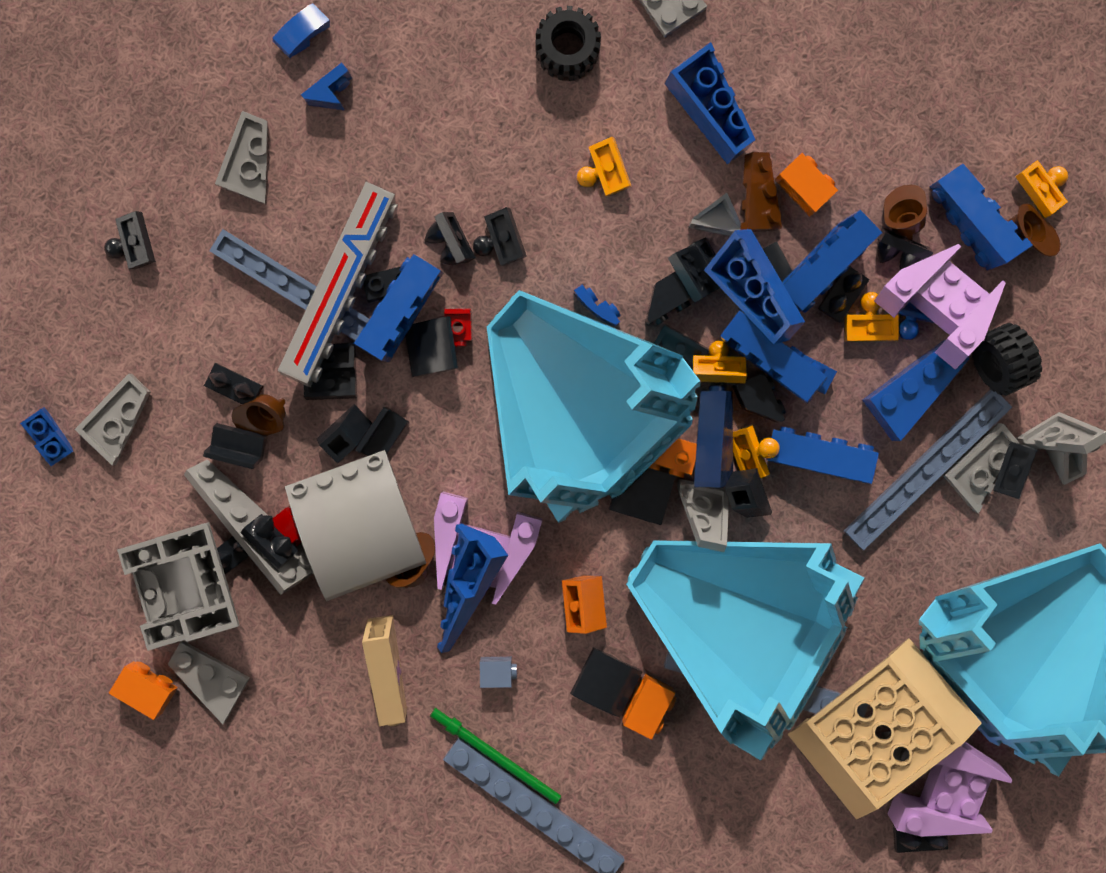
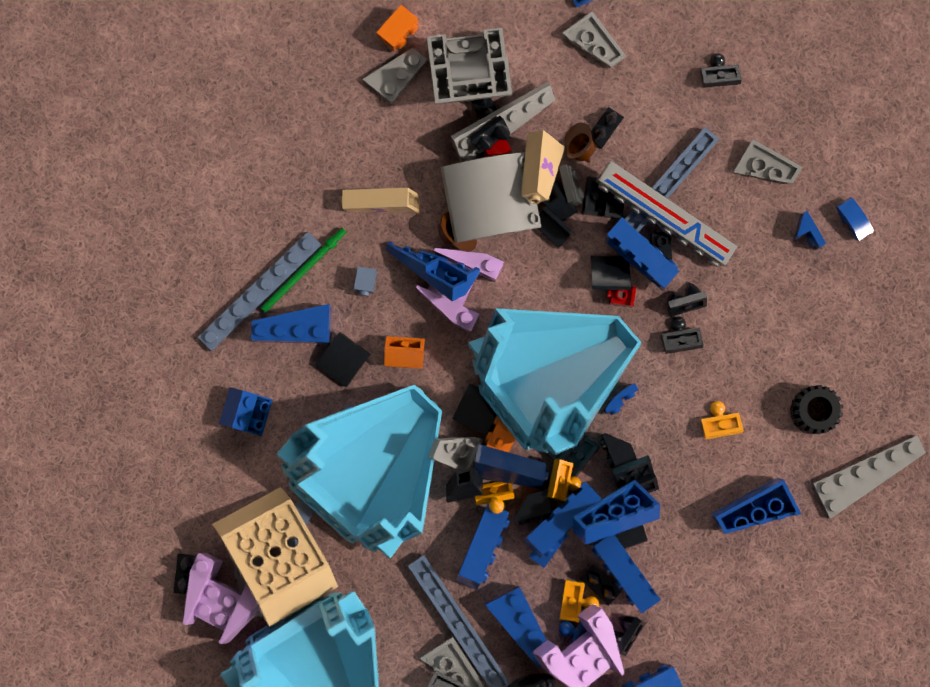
camera: 95 degrees right, 5 degrees down
(236, 446) = (561, 121): black panel -> none
(301, 465) = (540, 166): none -> tan slope
(311, 421) = (572, 190): none -> dark grey plate
(573, 748) = (300, 326): none -> blue wedge
(649, 707) = (320, 386): orange brick -> none
(698, 799) = (245, 411): none -> blue slope
(717, 218) = (672, 497): light grey slope -> none
(761, 198) = (680, 533): reddish brown wing -> none
(806, 184) = (686, 569): orange brick -> none
(906, 210) = (655, 640): reddish brown piece -> none

